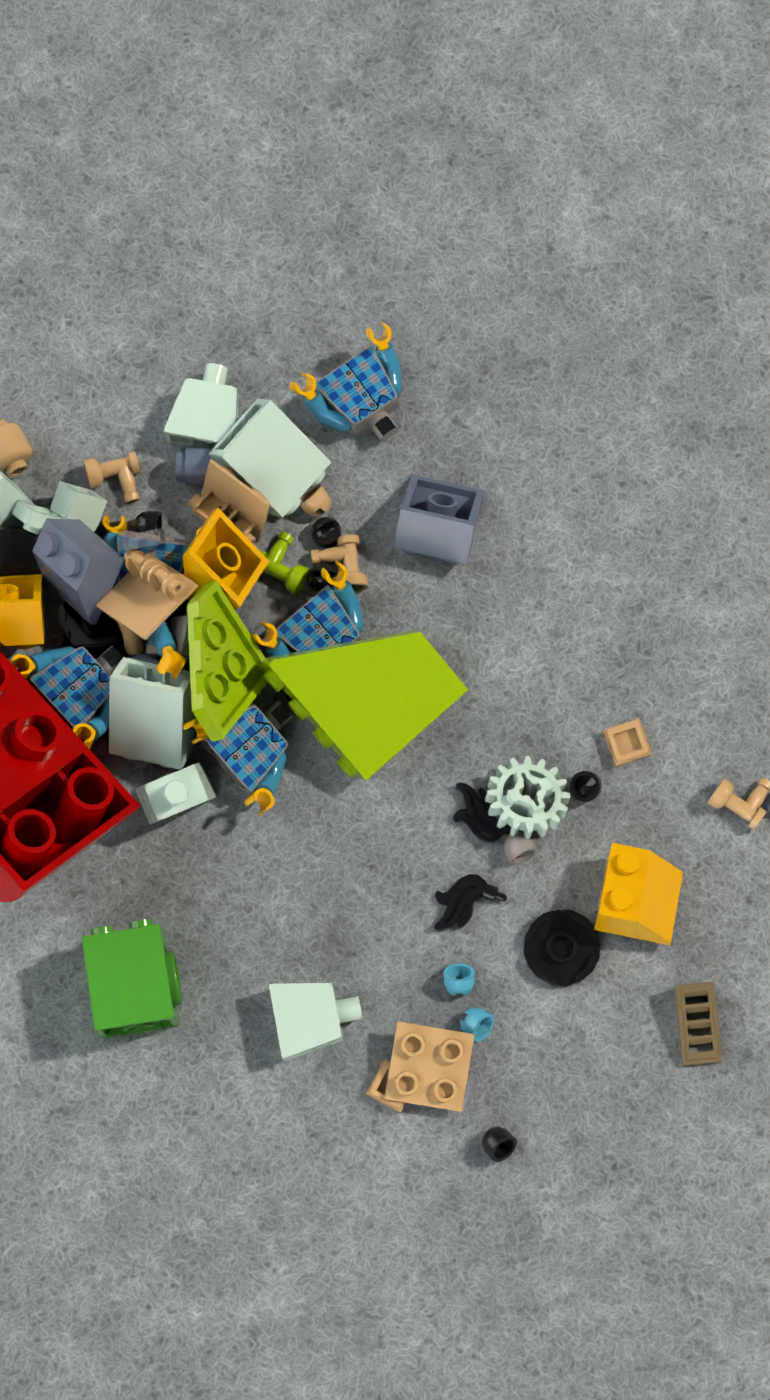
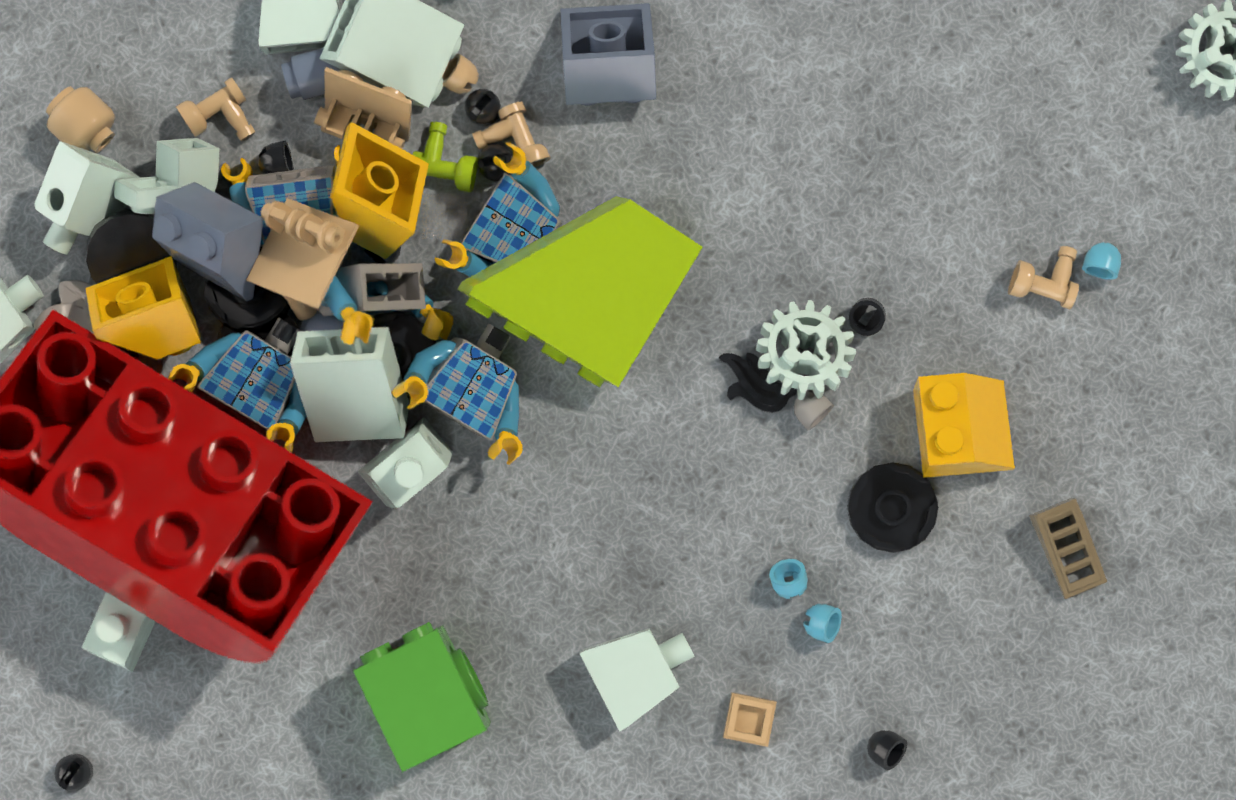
camera: 20 degrees left, 10 degrees up
(143, 539) = (277, 188): clear tile -> none
(223, 662) = (414, 305): lime plate -> none
(429, 1066) = (786, 688): tan hinge -> none
(461, 900) = (763, 485): black piece -> none
(627, 742) = (898, 250): tan tile -> none

